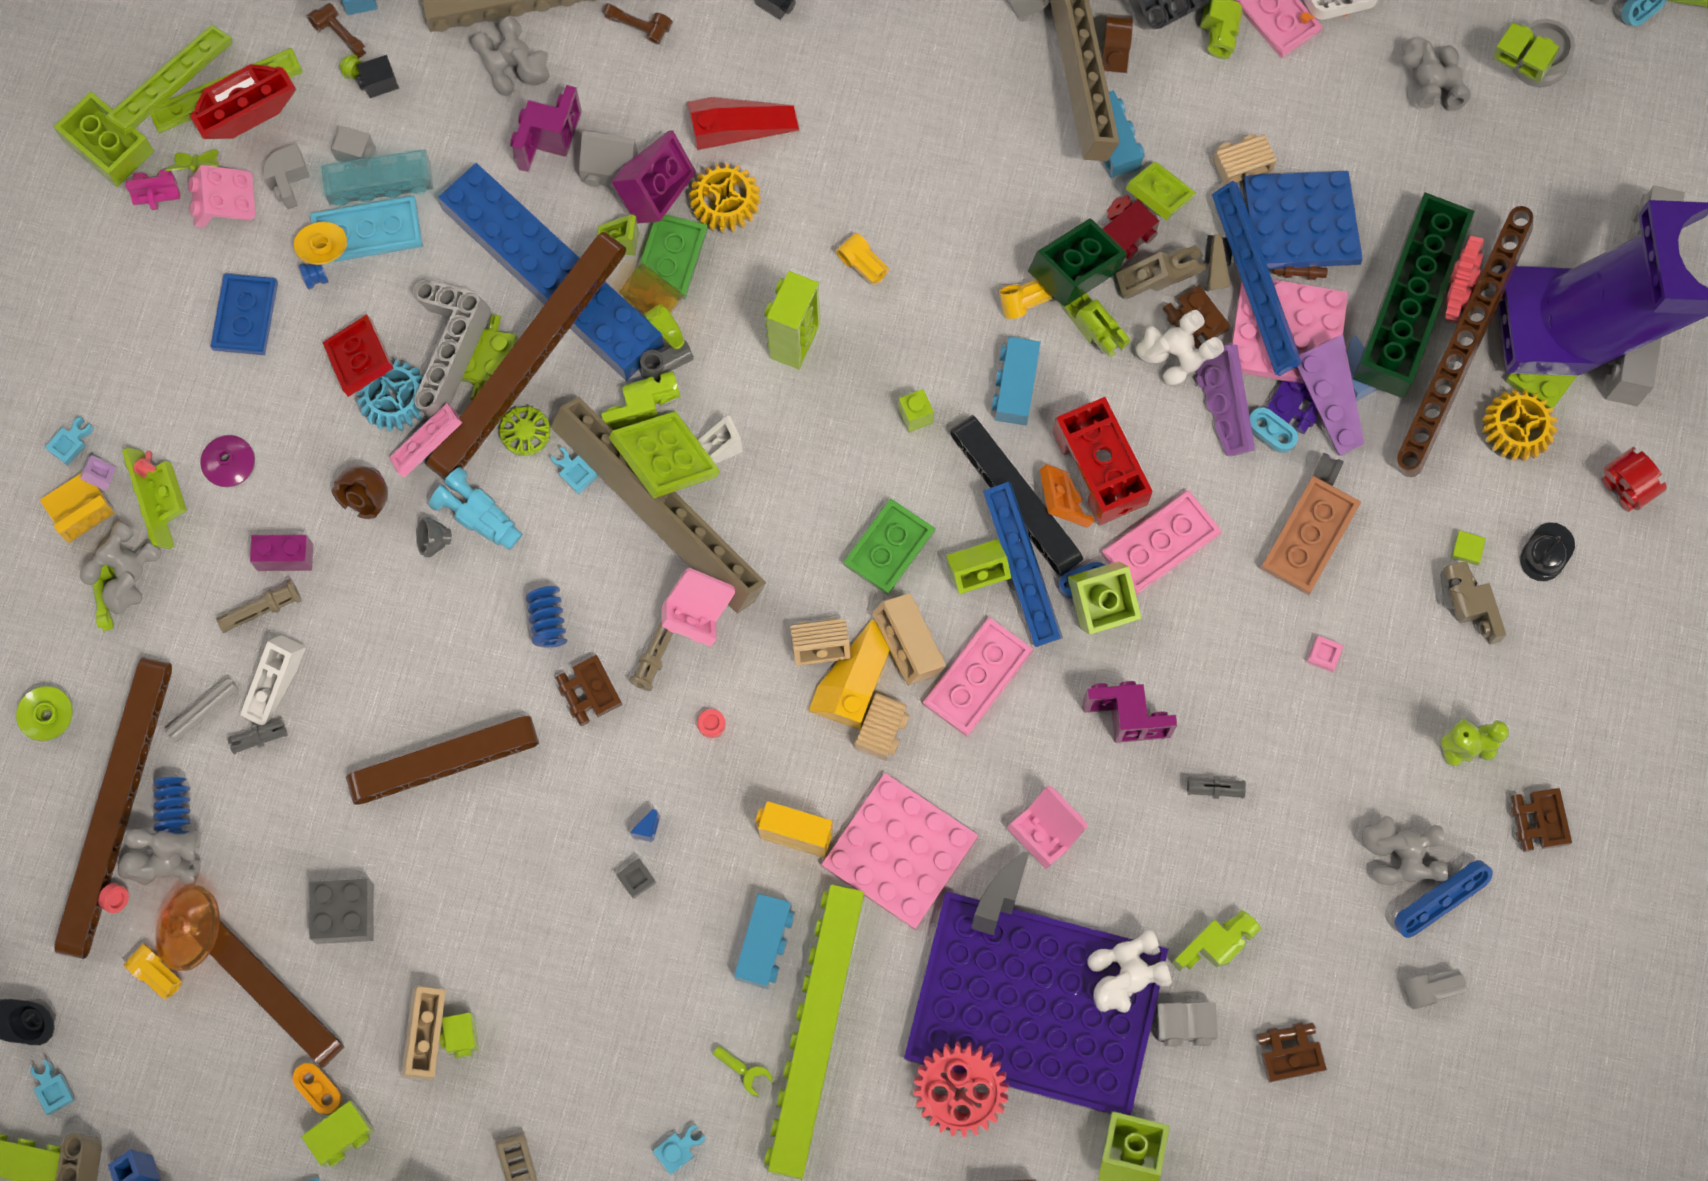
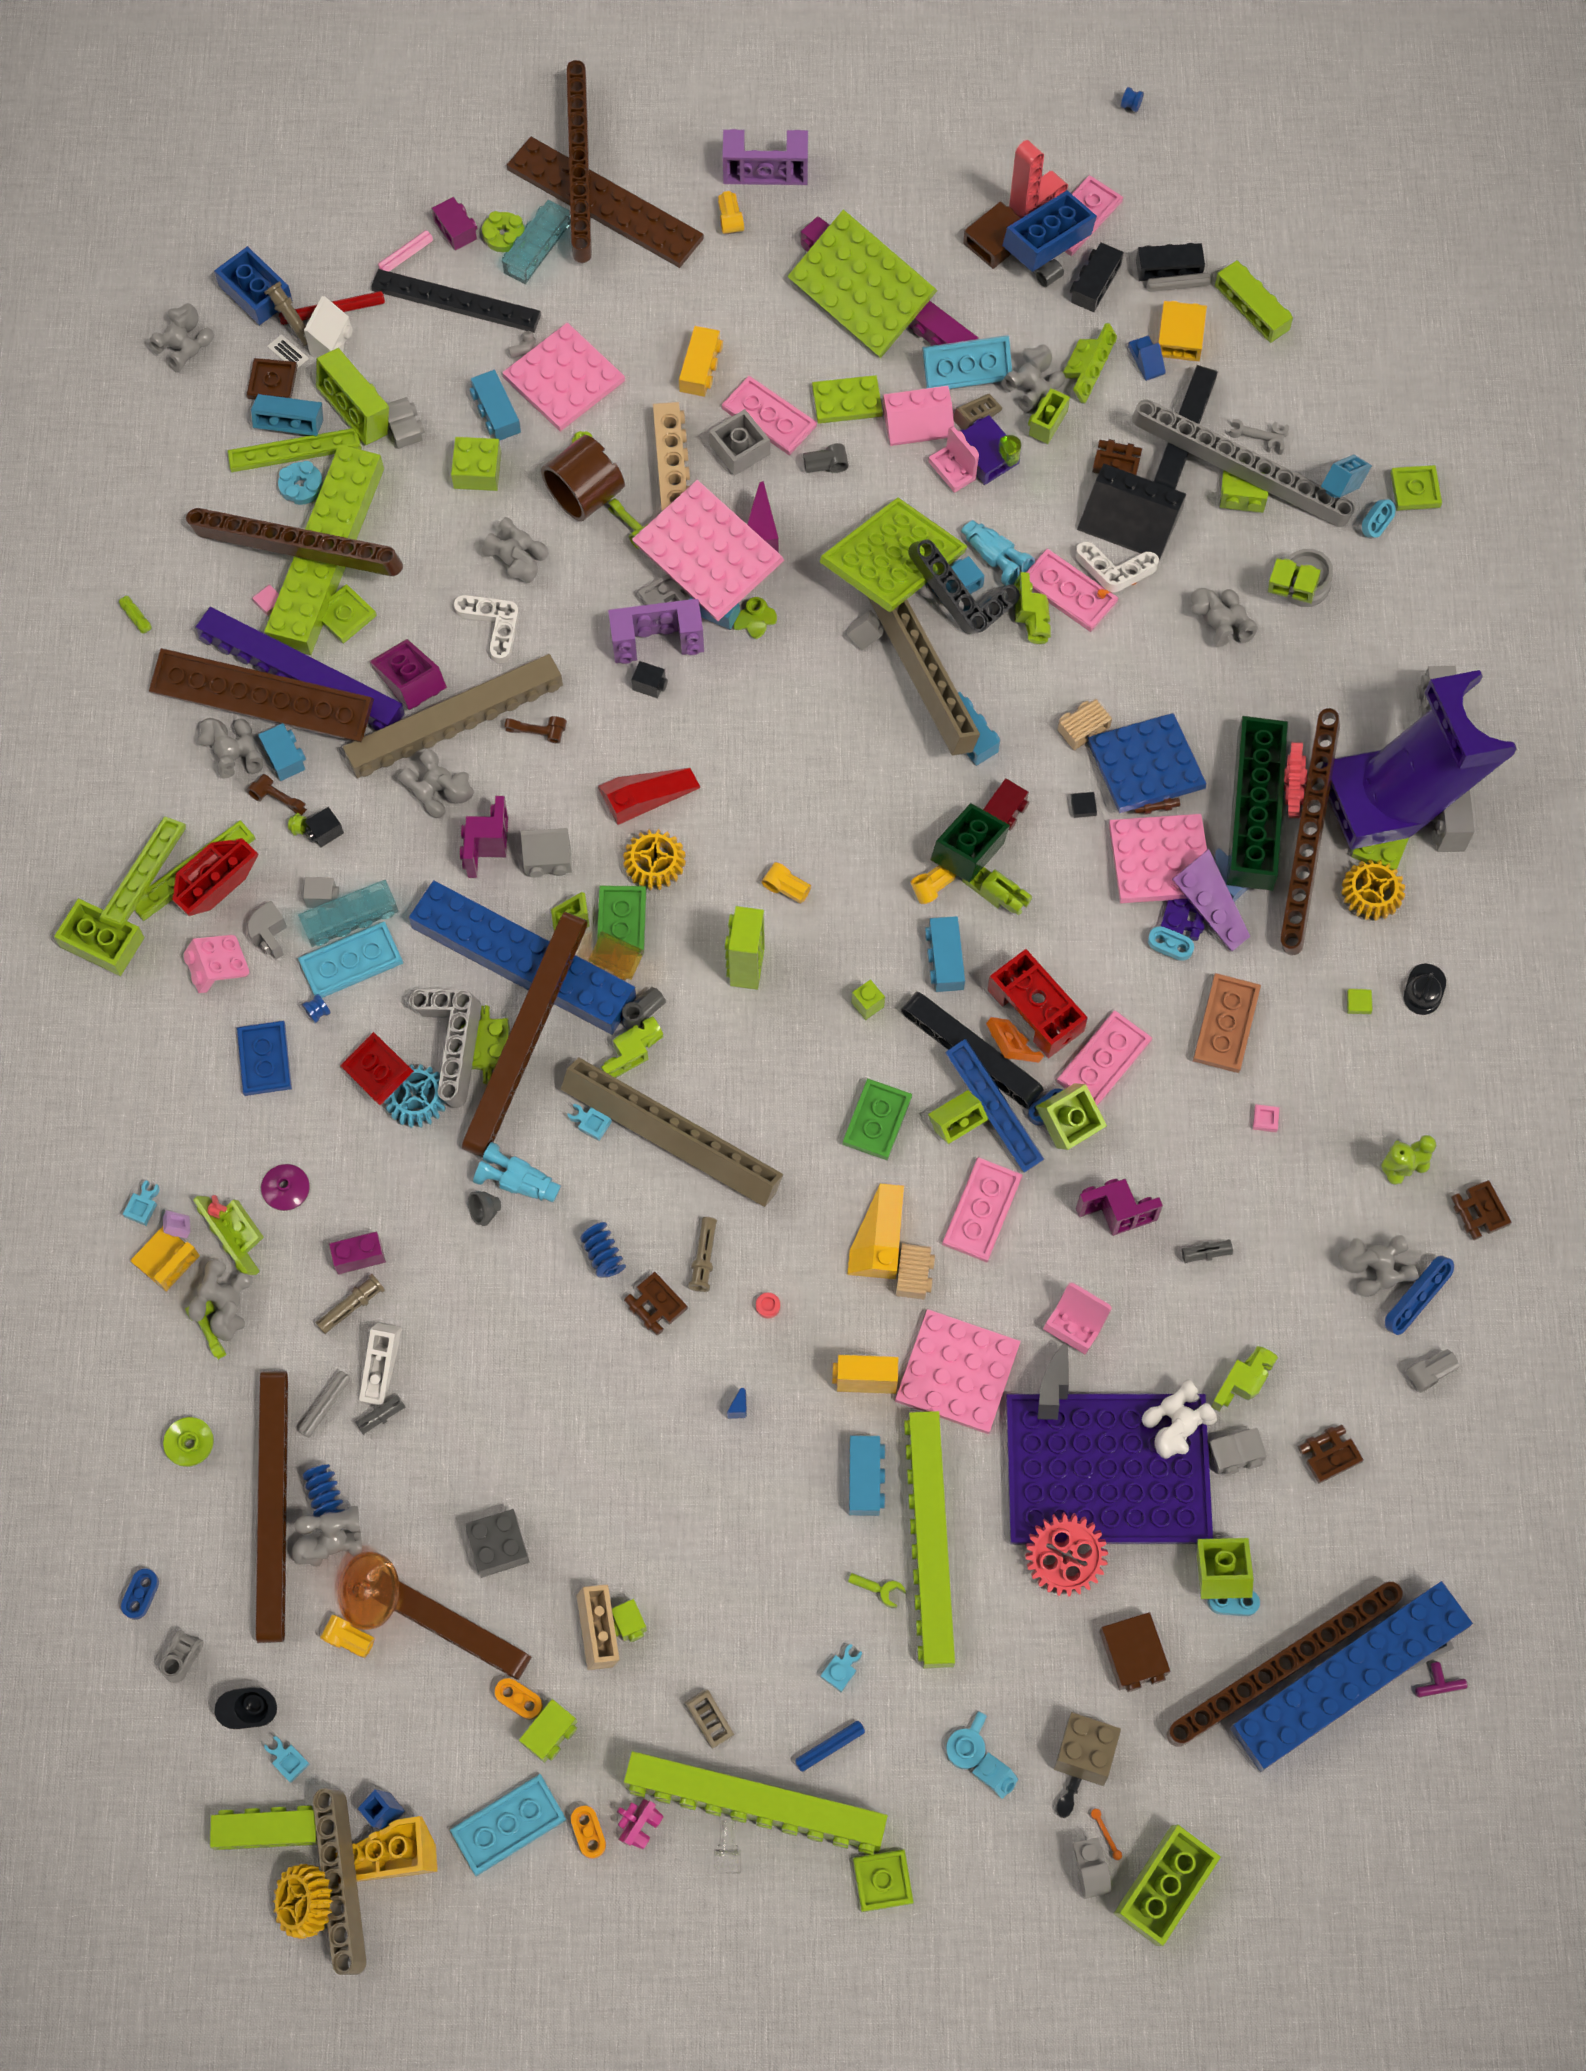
camera: 15 degrees left, 5 degrees down
(113, 898) = (294, 1583): coral tile -> none
(153, 190) = (154, 970): dark pink hips -> none
(186, 161) = (184, 938): lime piece -> none
(320, 243) = (316, 980): yellow dish -> none
(361, 490) = (412, 1183): reddish brown cylinder -> none
(425, 440) = (456, 1126): bright pink tile -> none
(442, 760) = (546, 1394): reddish brown beam -> none
(525, 431) = (537, 1098): lime wheel -> none
(636, 878) = (741, 1451): dark grey plate -> none
(654, 178) = (591, 858): magenta slope -> none
(664, 454) = (666, 1087): lime plate -> none
(666, 324) = (637, 978): lime helmet -> none
(696, 606) = (729, 1208): bright pink bracket -> none
(722, 441) = (708, 1067): white slope -> none
(820, 641) = (842, 1212): tan brick -> none
(909, 639) = (916, 1192): tan brick -> none
(1117, 42) = (951, 650): reddish brown brick -> none
(1118, 206) = (990, 788): red plant -> none
(1160, 190) = (1022, 766): lime plate -> none
(1160, 271) = (1041, 833): dark tan plate -> none
(1179, 342) = (1074, 888): white animal -> none
(1198, 300) = (1085, 861): reddish brown plate -> none
(1218, 272) = (1089, 823): dark tan slope -> none
(1227, 400) = (1119, 915): medium lavender wing -> none
(1256, 279) = (1123, 820): blue tile -> none
(1328, 469) = (1226, 964): dark grey wheel -> none
(1471, 601) = (1374, 1044): dark tan plate -> none
(1634, 479) = (1479, 911): red brick -> none

